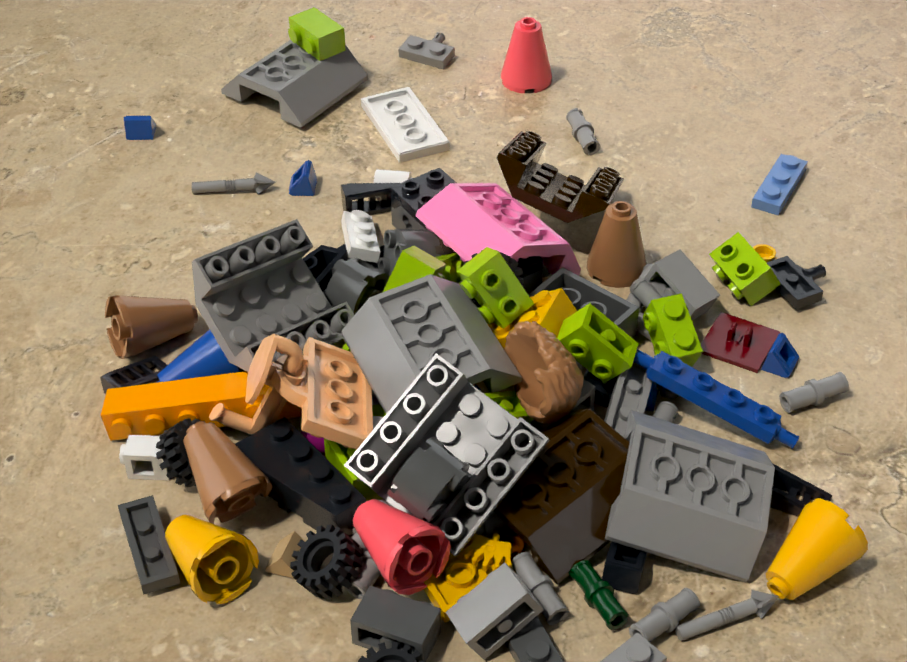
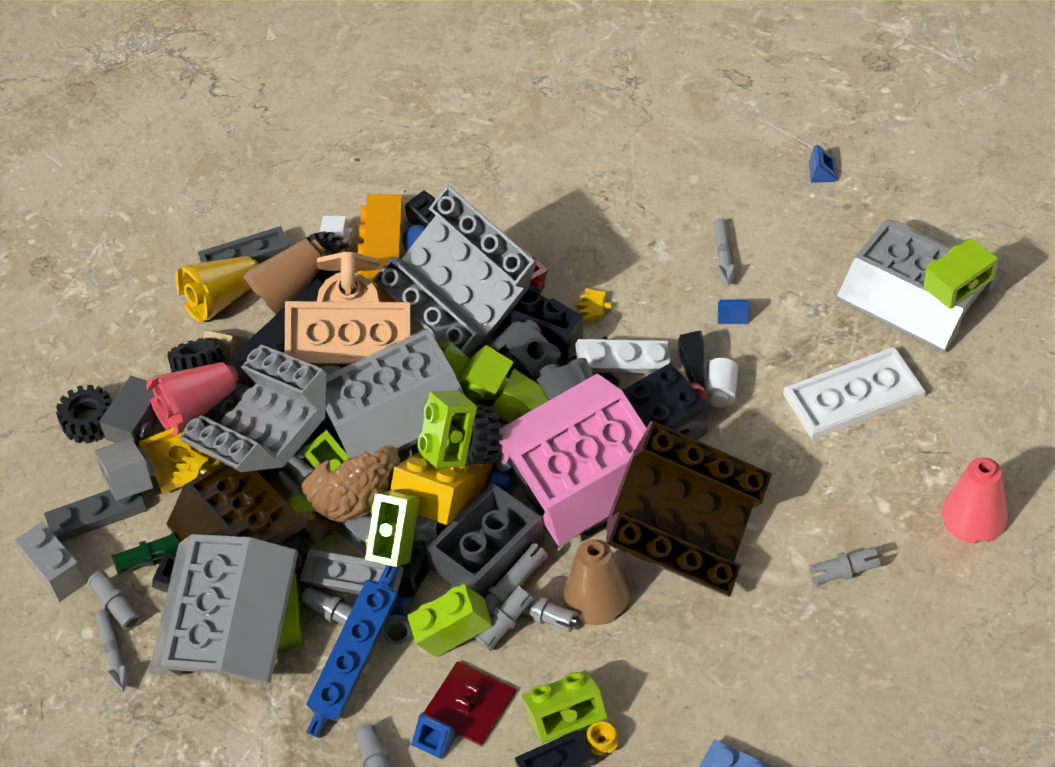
camera: 95 degrees right, 10 degrees up
(146, 322) = (495, 200): medium nougat cone -> none
(427, 51) = (1015, 408): light grey plate -> none
(429, 481) = (223, 397): dark grey brick -> none
(540, 586) = (153, 513): light grey pin -> none
(679, 275) = (527, 637): light grey brick -> none
(794, 486) = (236, 704): black slope -> none
(815, 550) = (157, 720): yellow cone -> none

